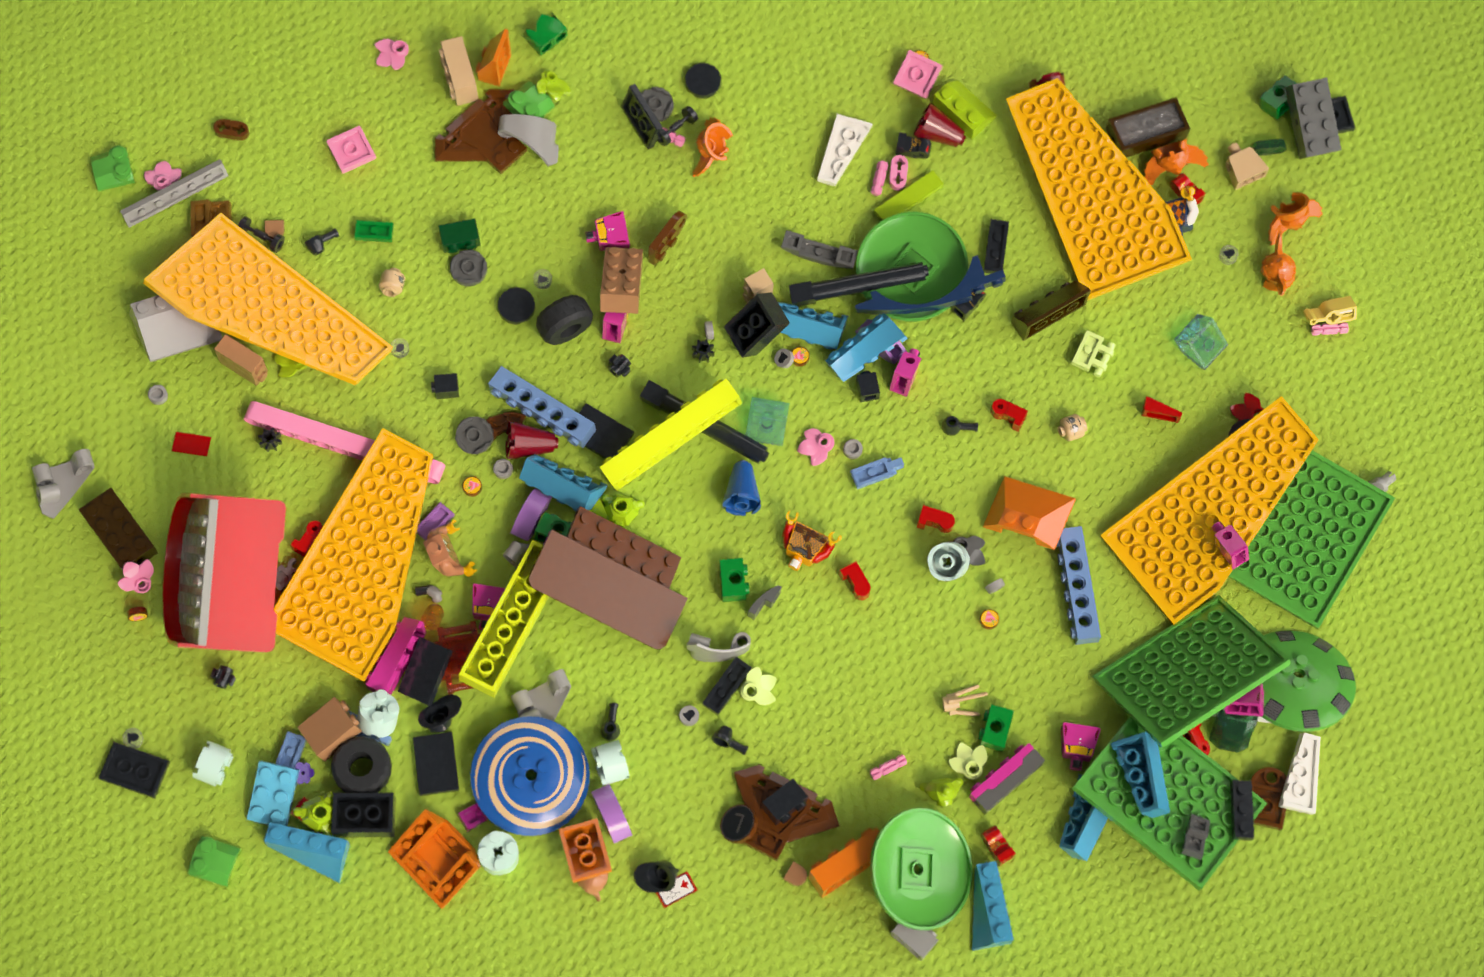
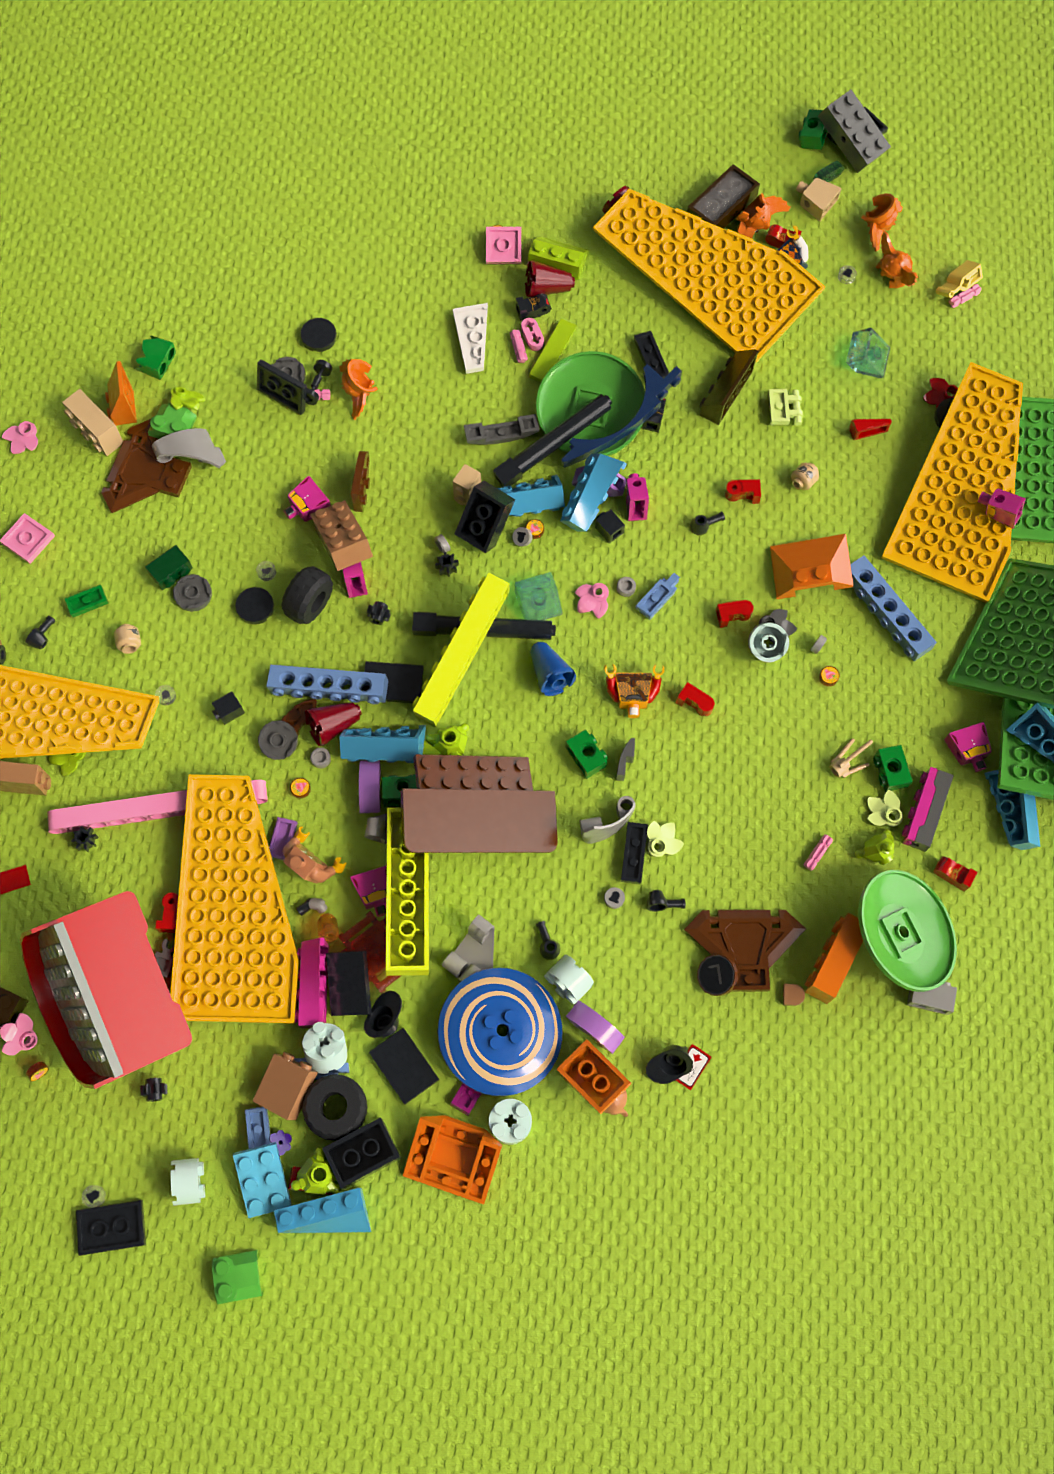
camera: 25 degrees left, 0 degrees up
(784, 802) = (748, 932): black brick -> none
(990, 912) = (982, 934): dark azure wedge -> none

